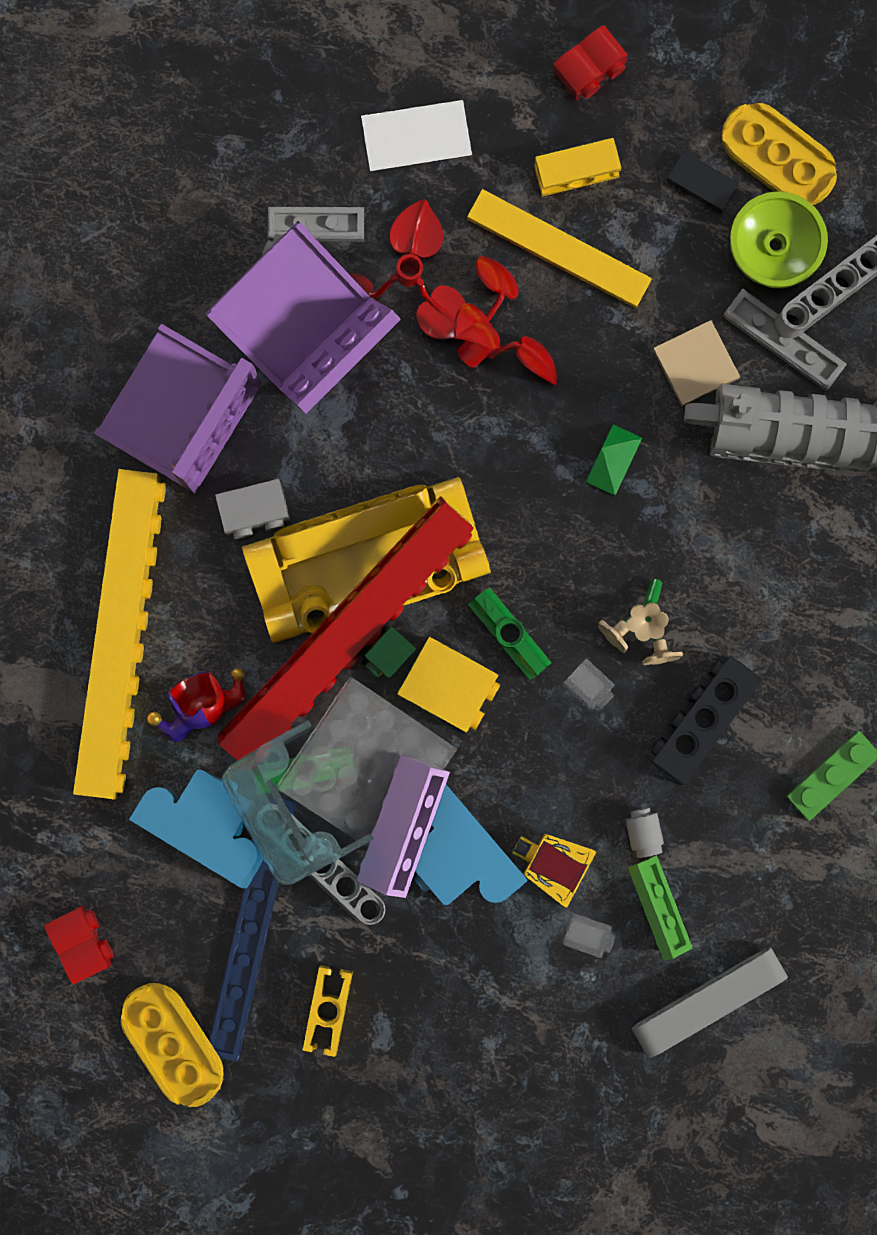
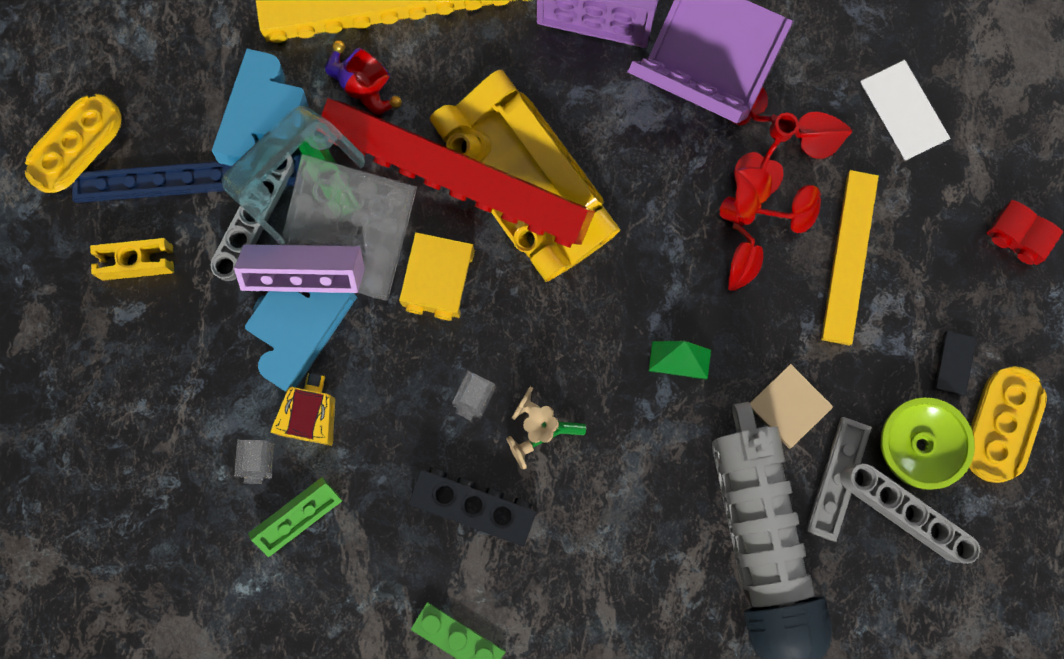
camera: 75 degrees right, 5 degrees down
(79, 945) = (136, 44): red brick -> none
(253, 509) = (538, 70): light grey brick -> none
(324, 223) = (801, 55): light grey tile -> none
(386, 653) = (447, 211): dark green brick -> none
(495, 617) = (507, 298): green piece -> none
(577, 167) = (927, 249): yellow piece -> none
(644, 833) = (357, 483): light grey brick -> none
(709, 1002) = (223, 586): light grey beam -> none

